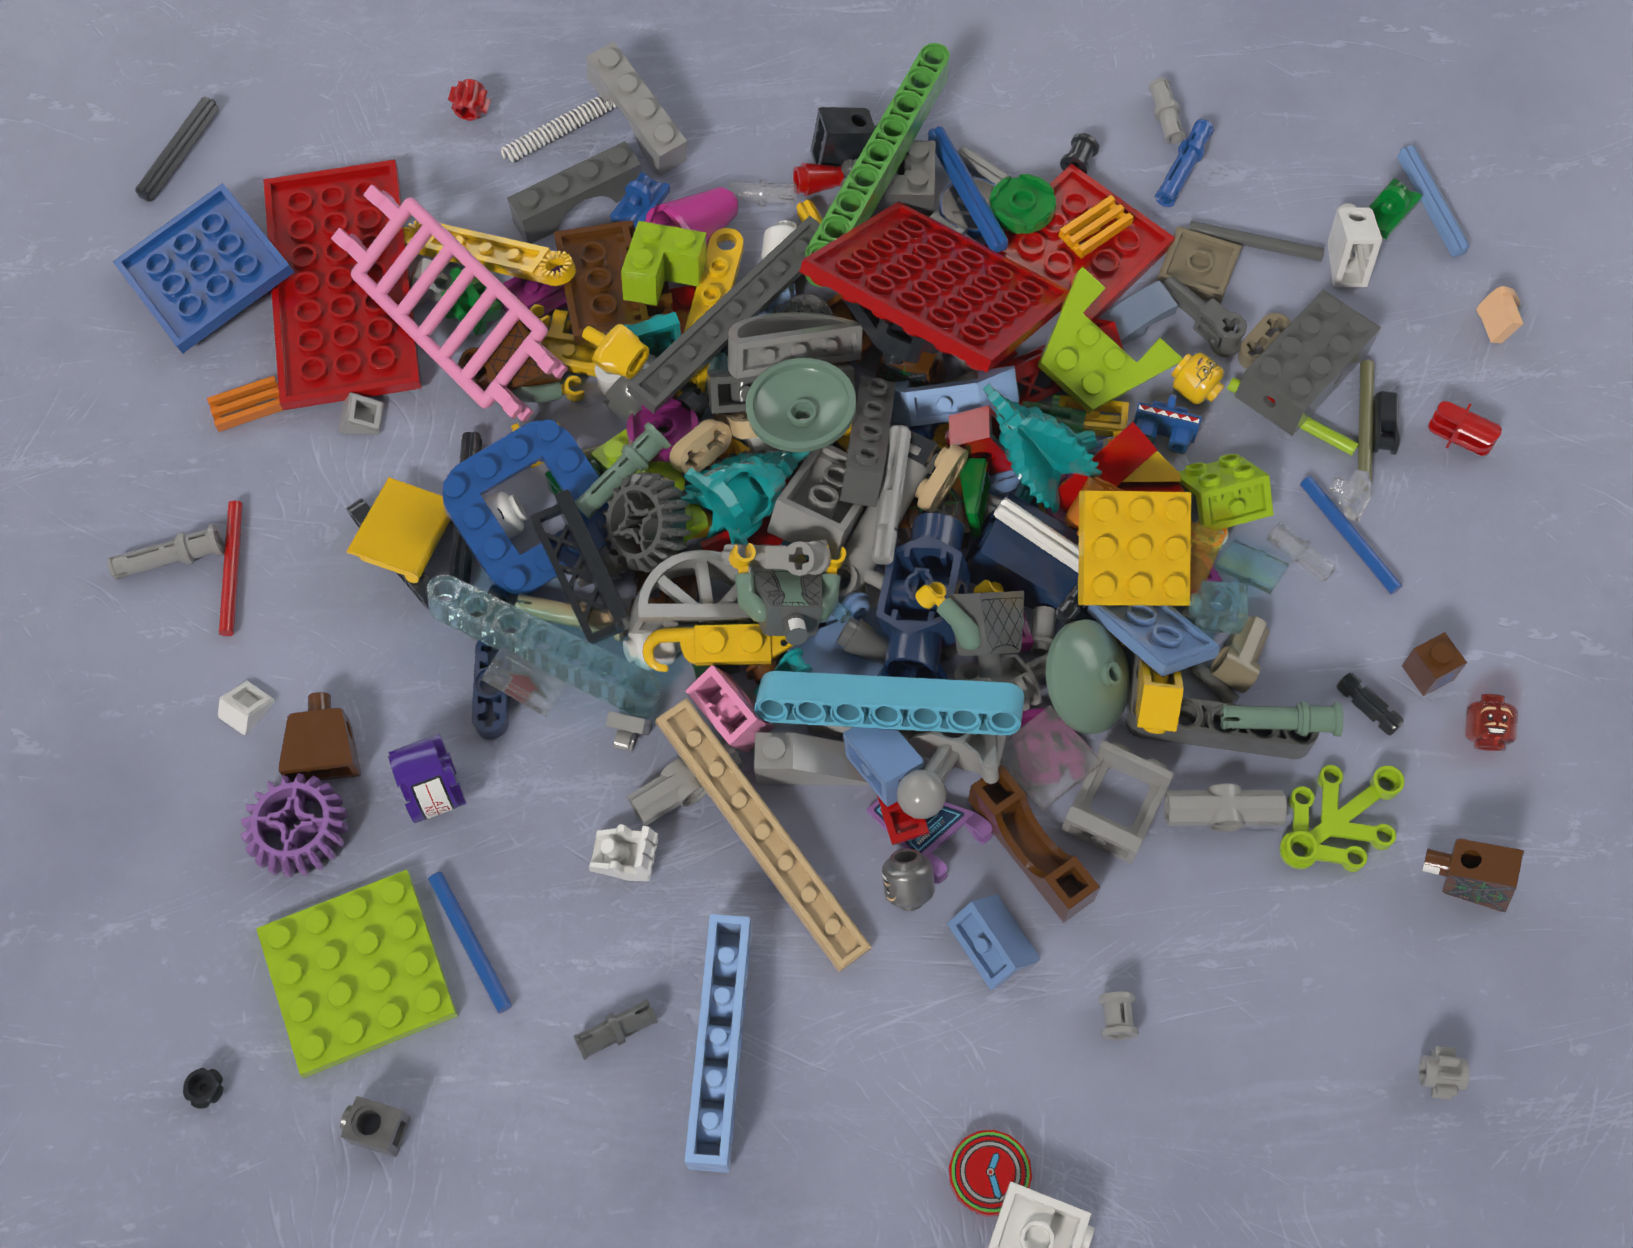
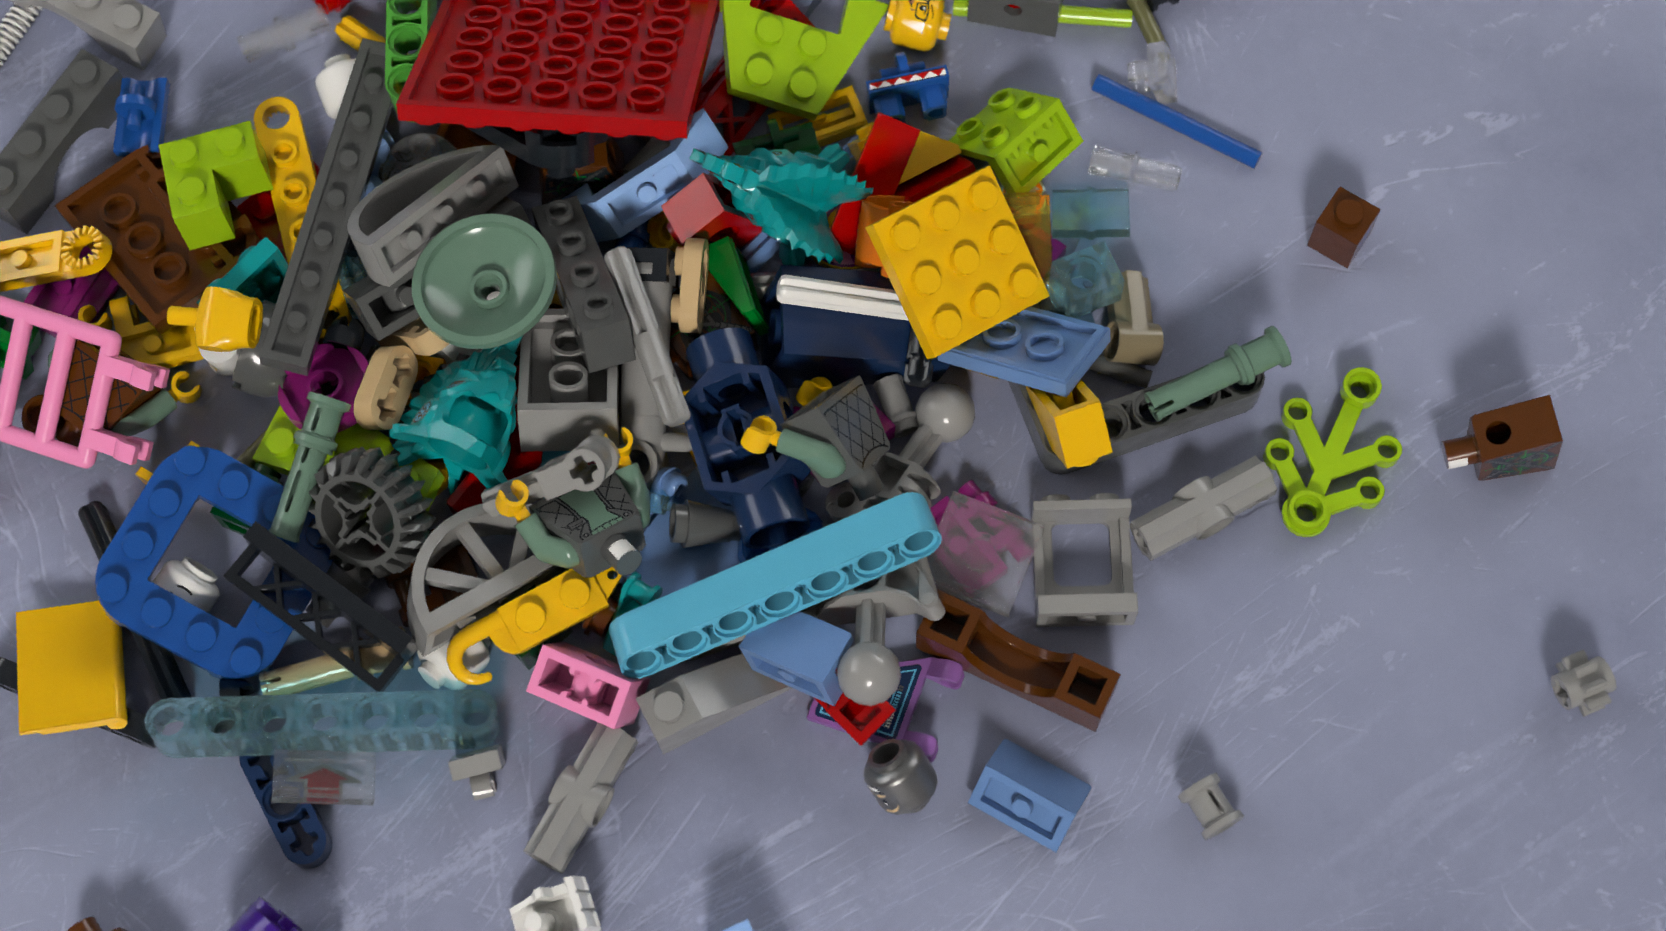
camera: 25 degrees left, 5 degrees up
(698, 212) = (220, 98): dark pink cone -> none
(763, 835) = (705, 811): tan tile -> none
(1087, 676) = (978, 436): sand green dish -> none
(1370, 703) = (1296, 307): black axle -> none
(1491, 723) = (1436, 263): clear red head -> none

